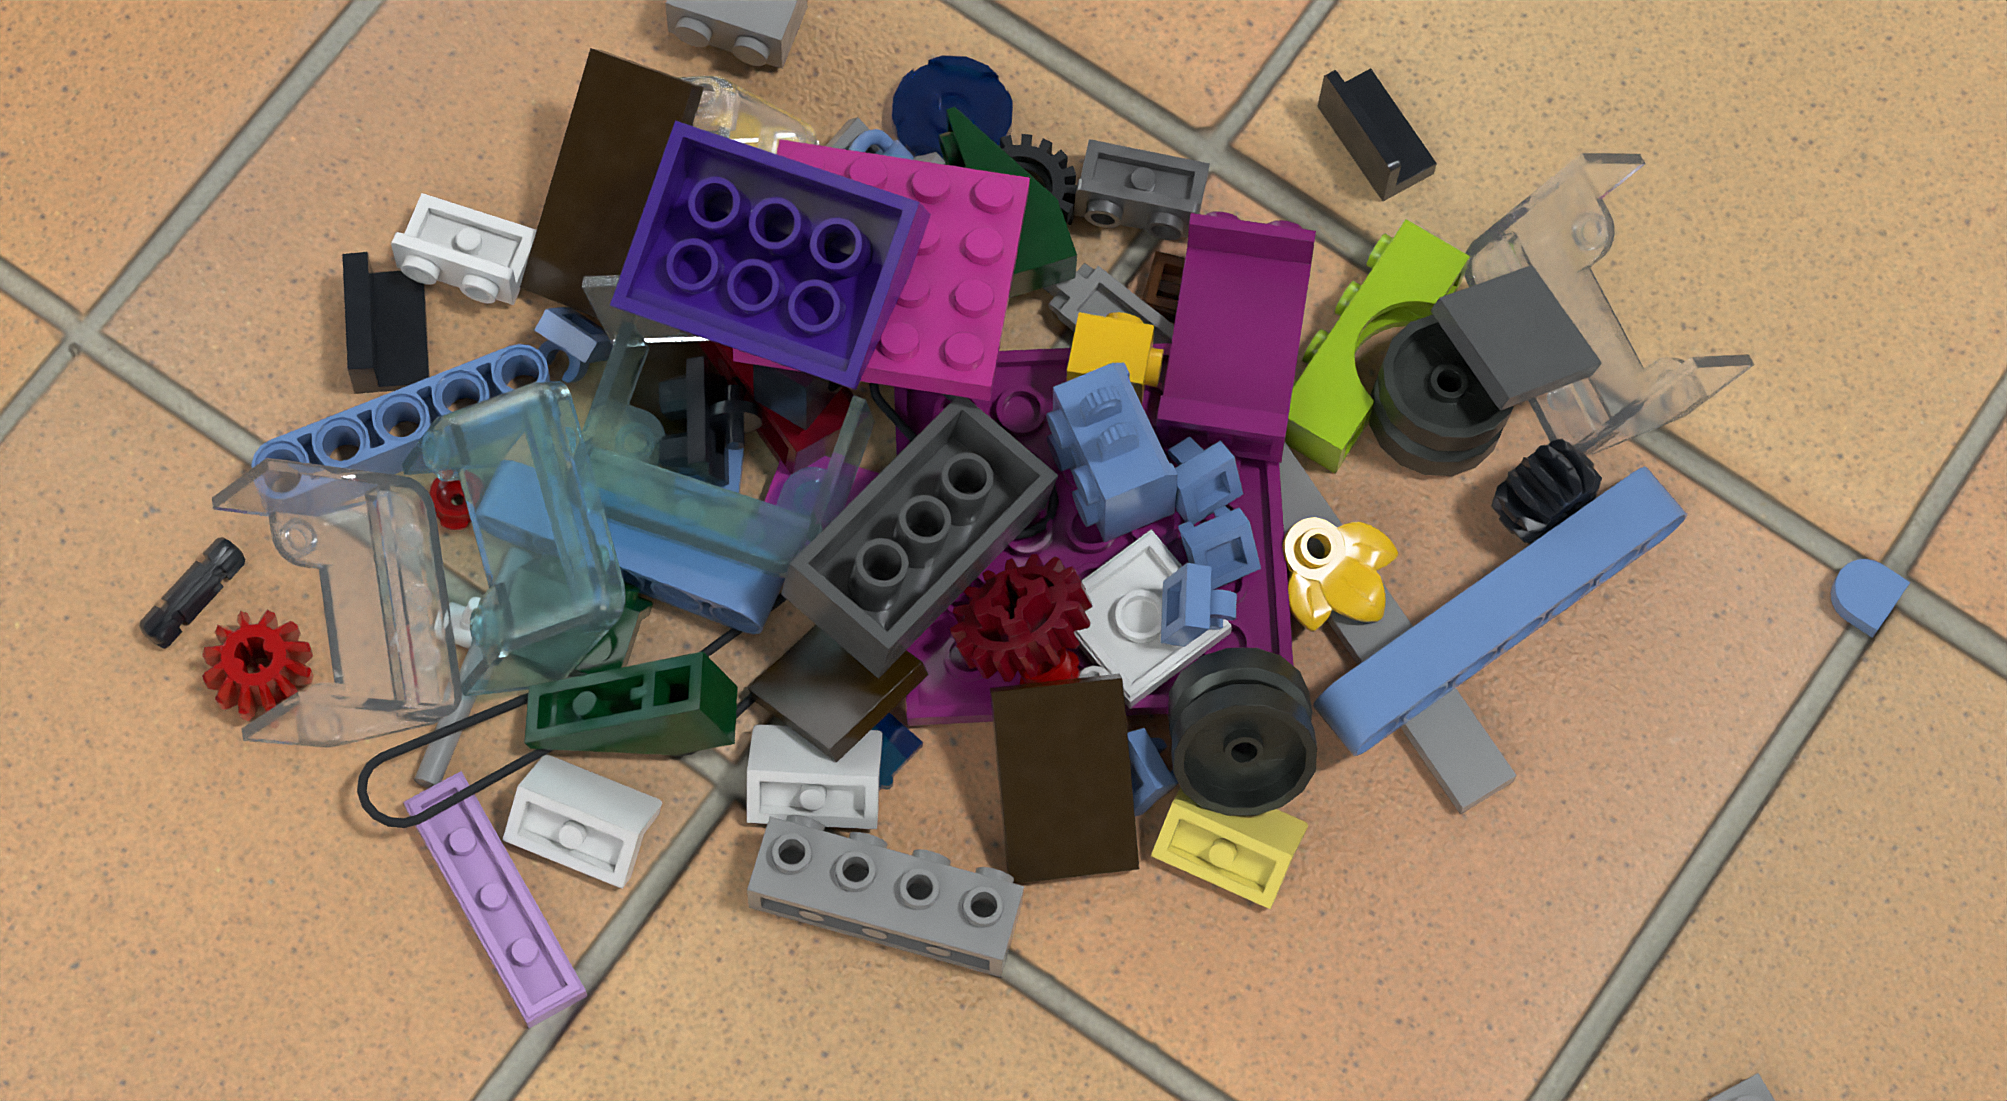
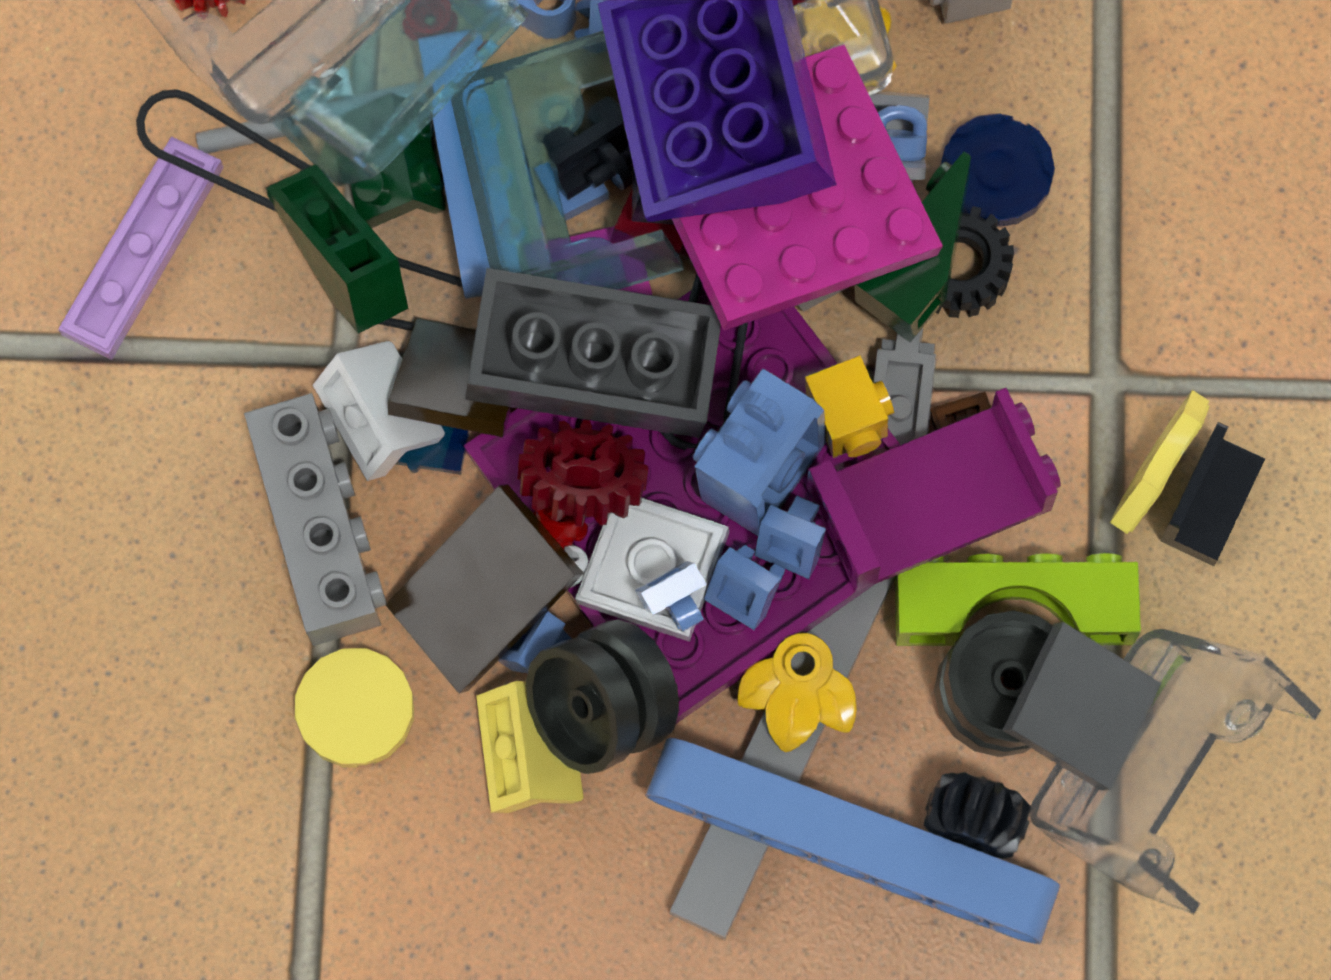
camera: 65 degrees right, 5 degrees up
(580, 820) = (239, 265): white panel -> none
(1090, 971) = (354, 707): none -> light yellow tile
(1139, 189) = (1027, 346): flat silver bracket -> none
(1318, 150) = (1160, 462): none -> light yellow tile

